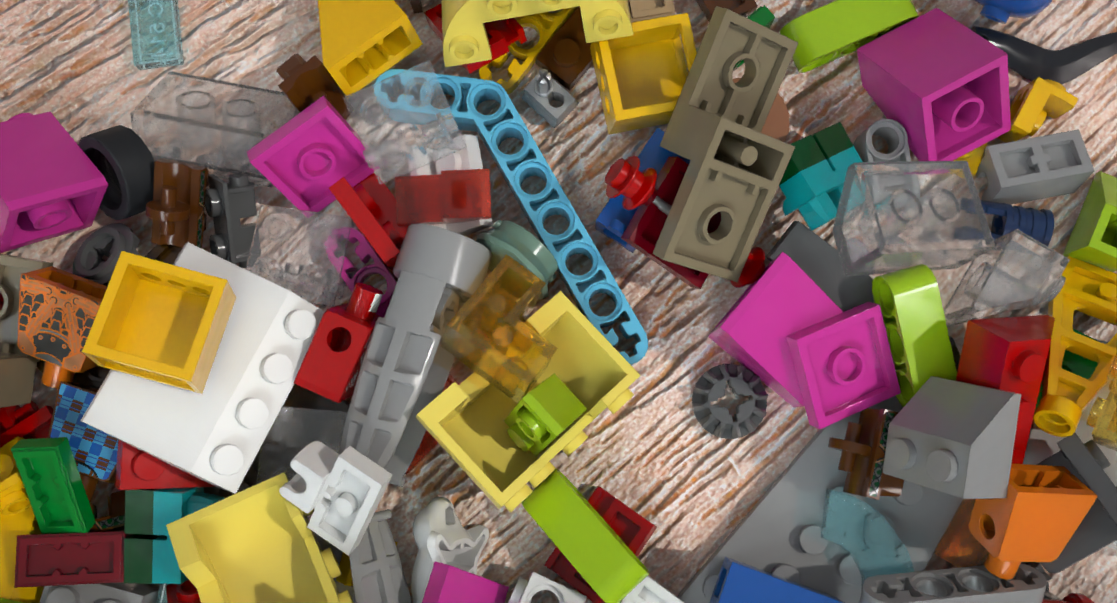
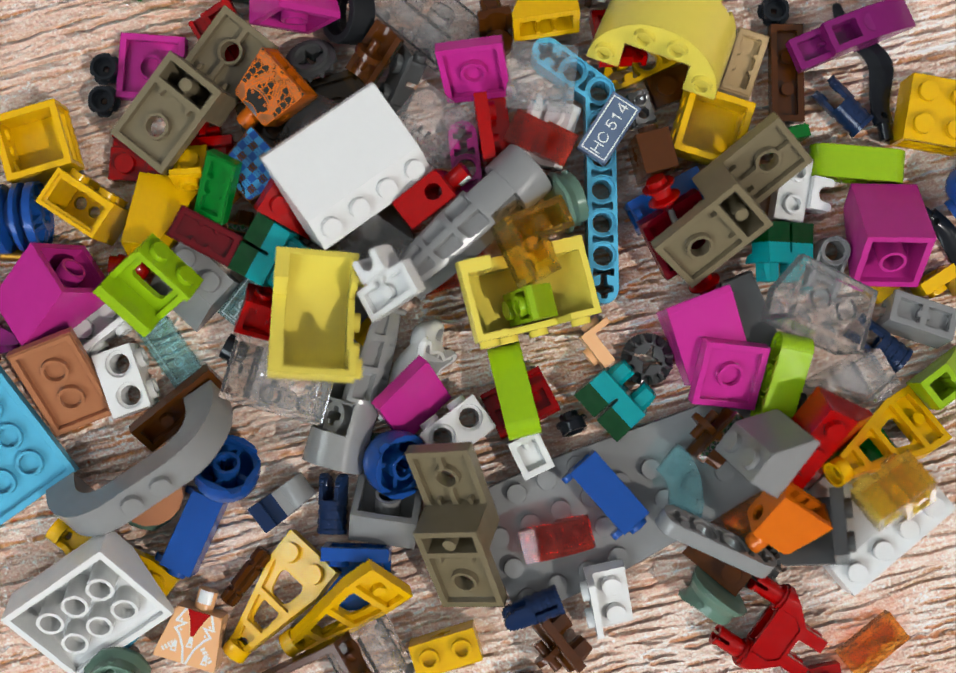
camera: 25 degrees right, 5 degrees up
(160, 322) = (338, 125): yellow piece -> none
(522, 141) = (608, 128): none -> sand blue tile
(593, 140) = (652, 153): none -> reddish brown brick
(659, 426) = (595, 350): none -> light nougat bracket
(680, 536) = (571, 423): none -> black plate
(738, 476) = (608, 386): none -> teal hips
(804, 99) = (799, 196): none -> white plate

